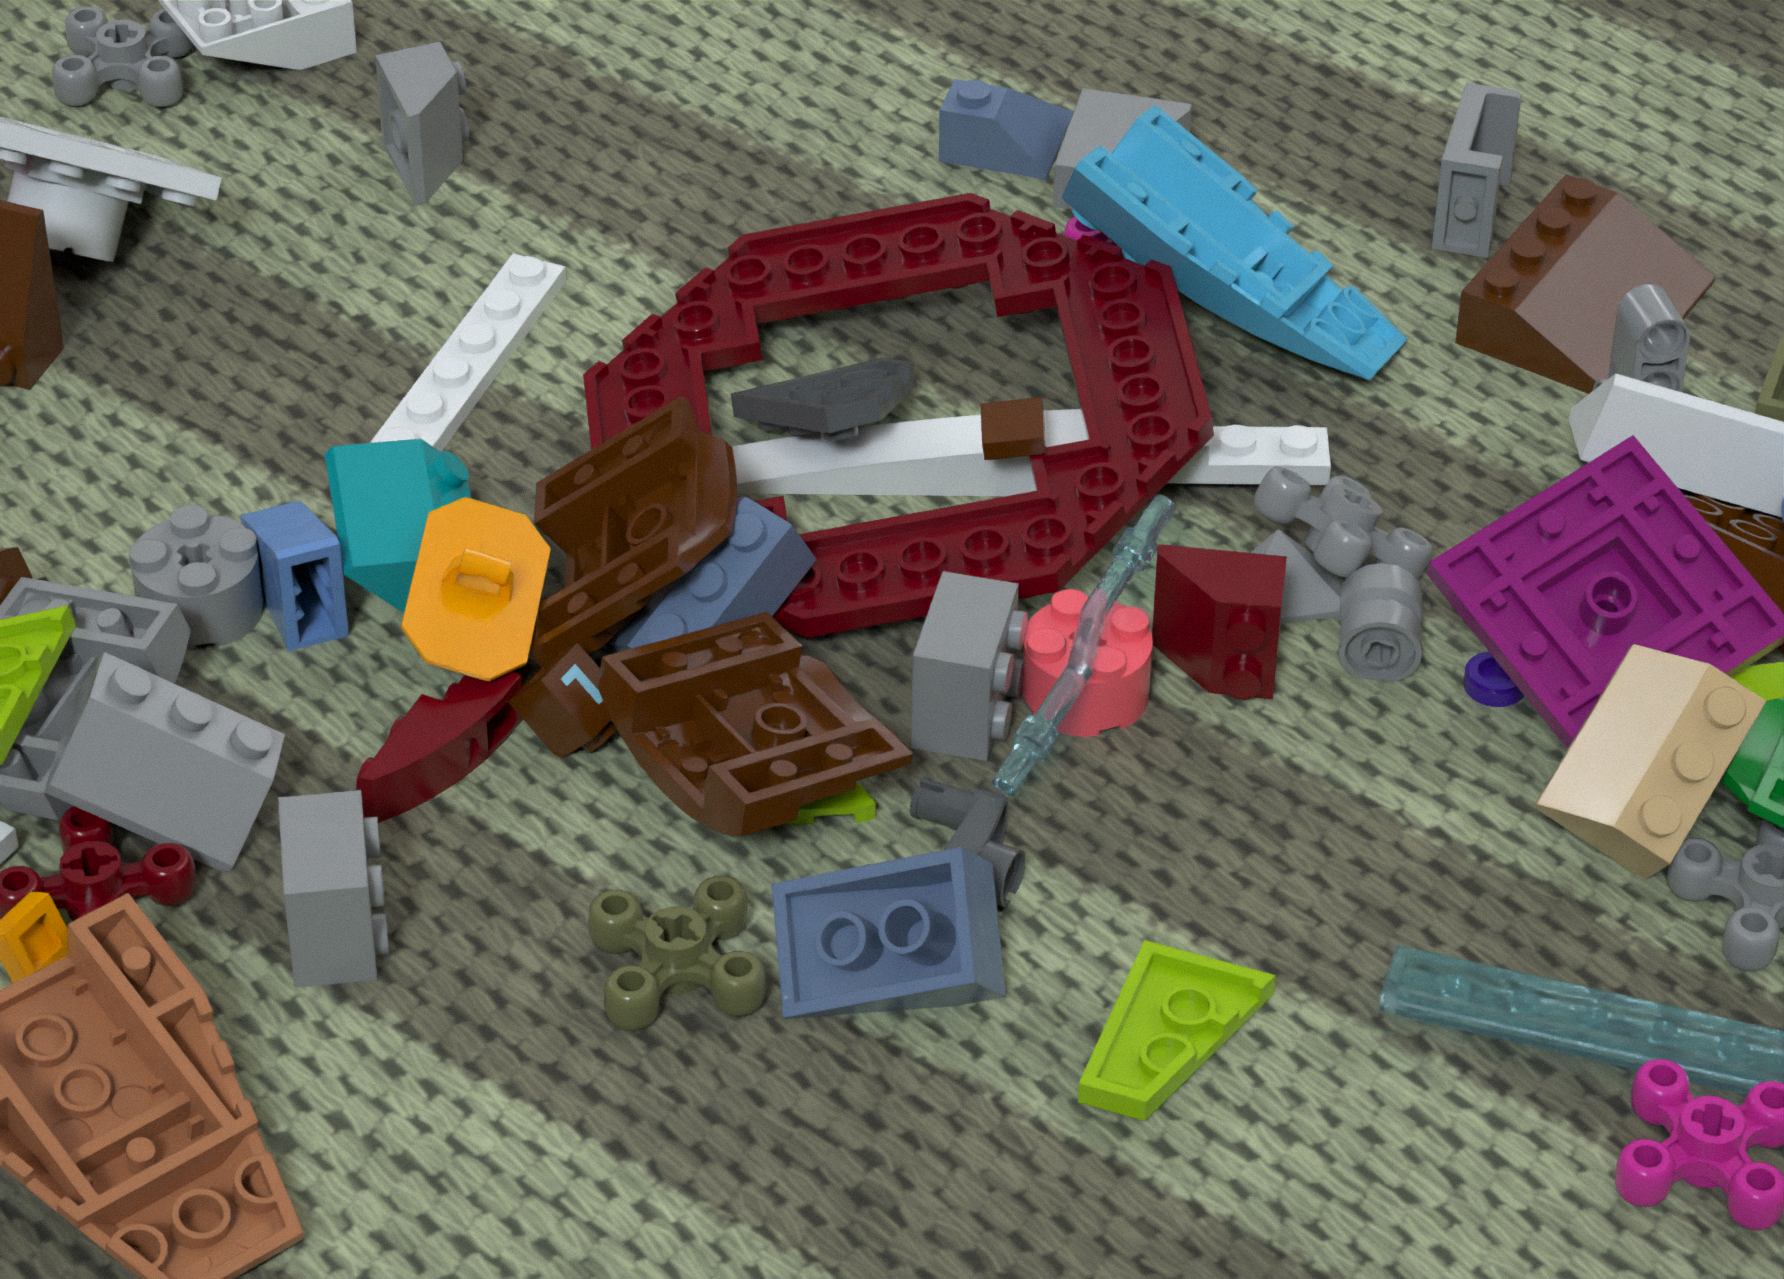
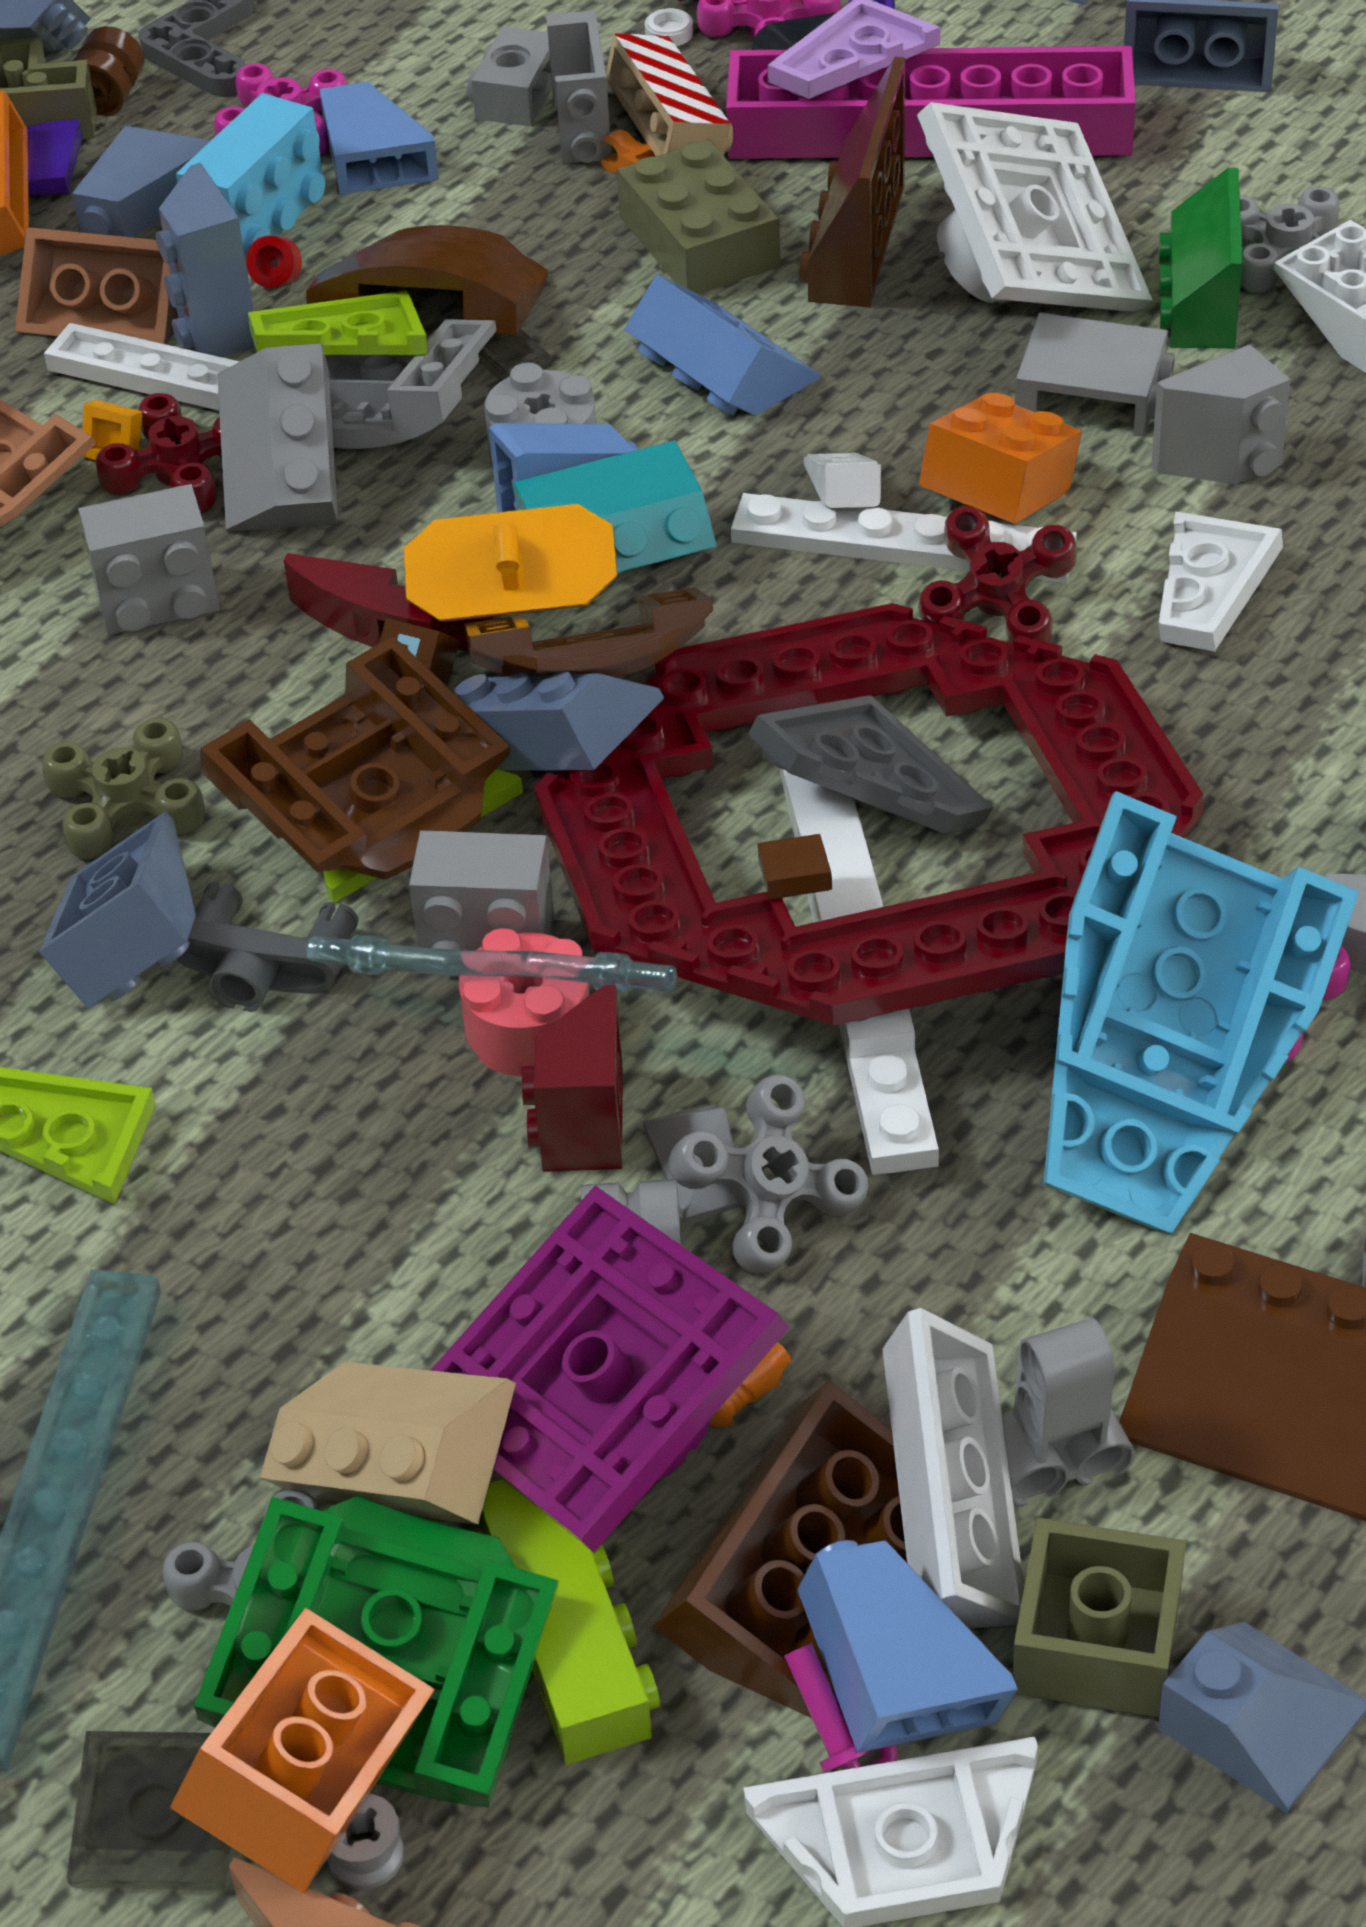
camera: 85 degrees right, 5 degrees up
(115, 445) = (715, 349): none -> medium blue slope
(163, 91) = (1203, 267): none -> green slope
(274, 201) = (1094, 362): none -> light grey panel
(377, 378) = (845, 479): none -> white slope
(408, 265) = (1000, 457): none -> orange brick
(578, 299) = (998, 575): none -> dark red gear
(611, 185) = (1212, 577): none -> white wing

